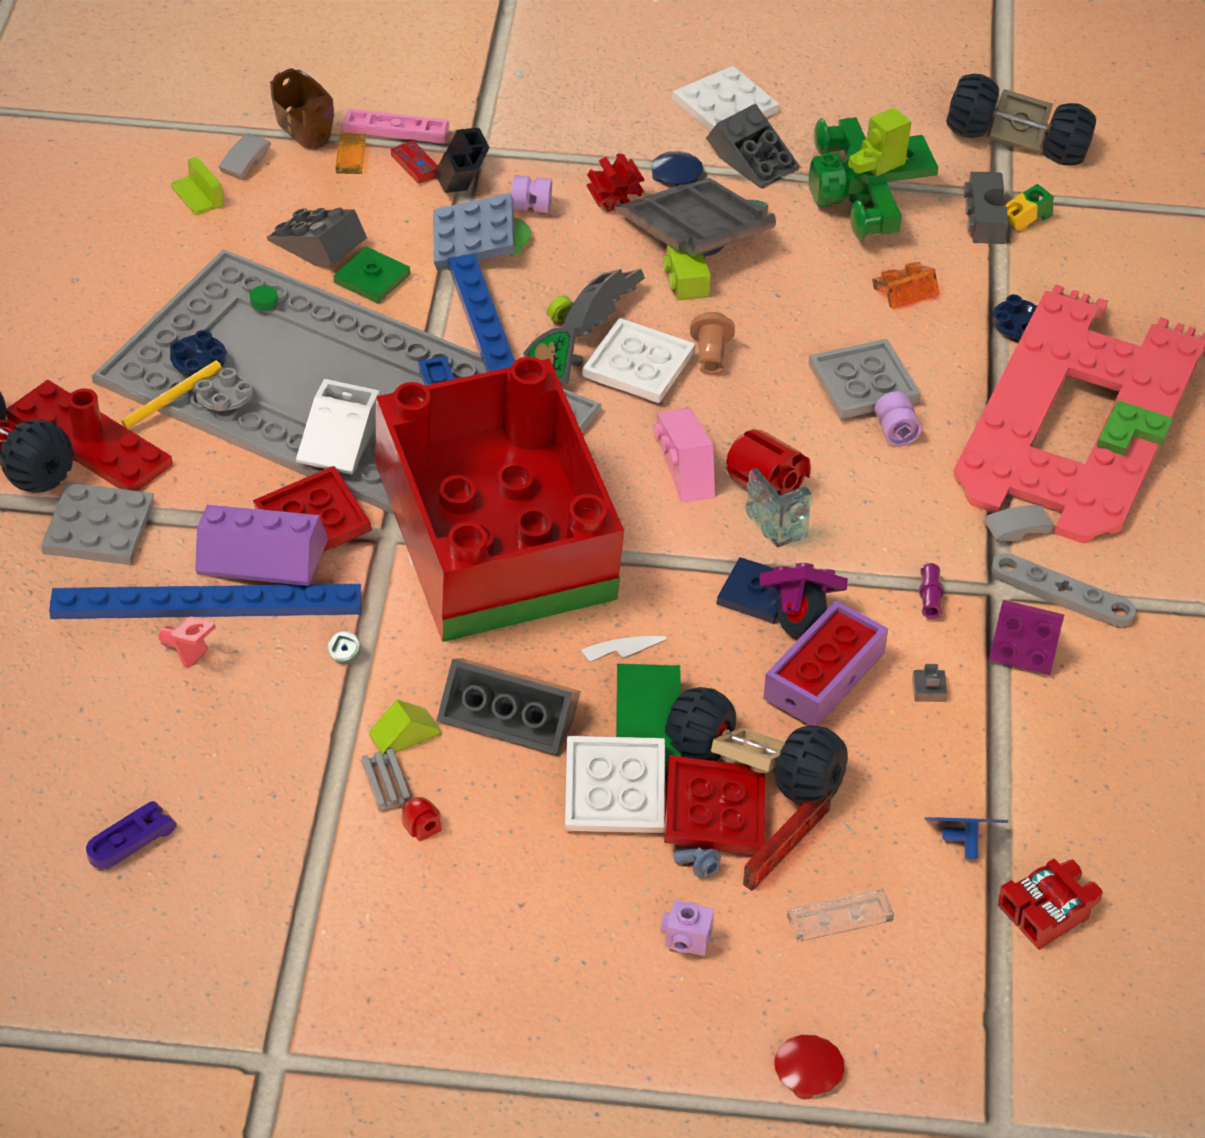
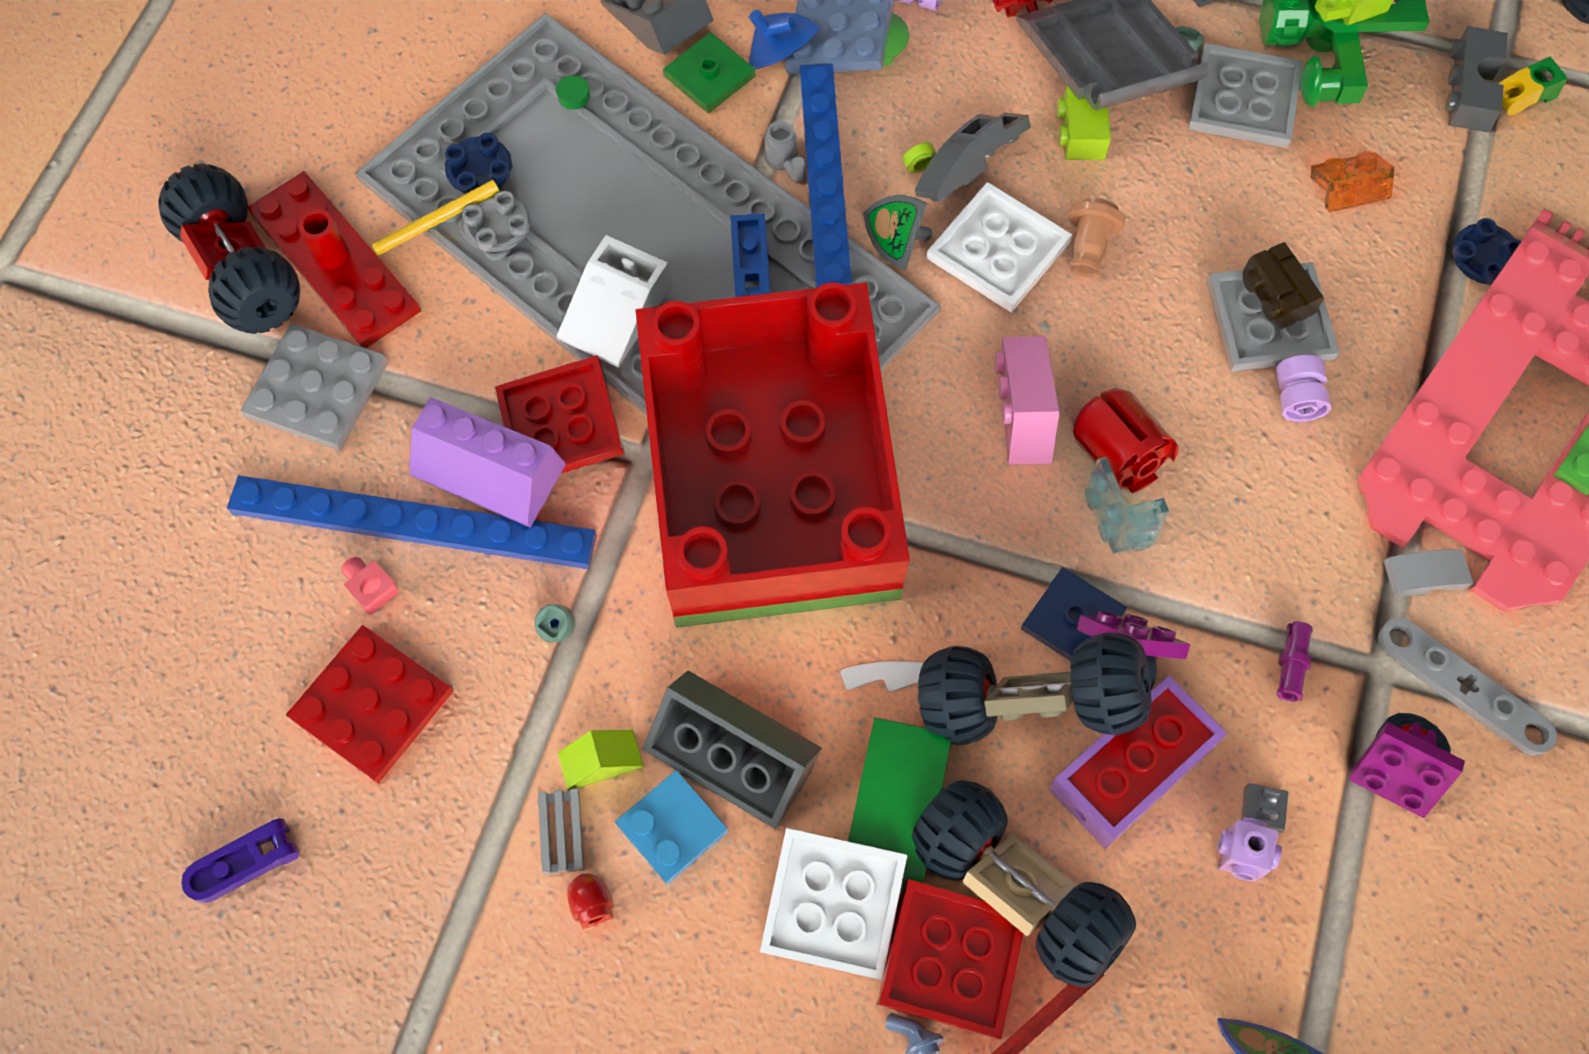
camera: 15 degrees right, 20 degrees up
(205, 722) = (369, 703): none -> red plate
(424, 242) = (778, 36): none -> blue shield
(446, 317) = (782, 150): none -> light grey piece
(473, 764) = (671, 827): none -> dark azure plate
(789, 600) = (1105, 683): none -> black plate
(811, 239) = (1246, 96): none -> light grey plate
(866, 352) = (1281, 286): none -> dark brown brick
(922, 706) = (1240, 858): none -> lavender brick

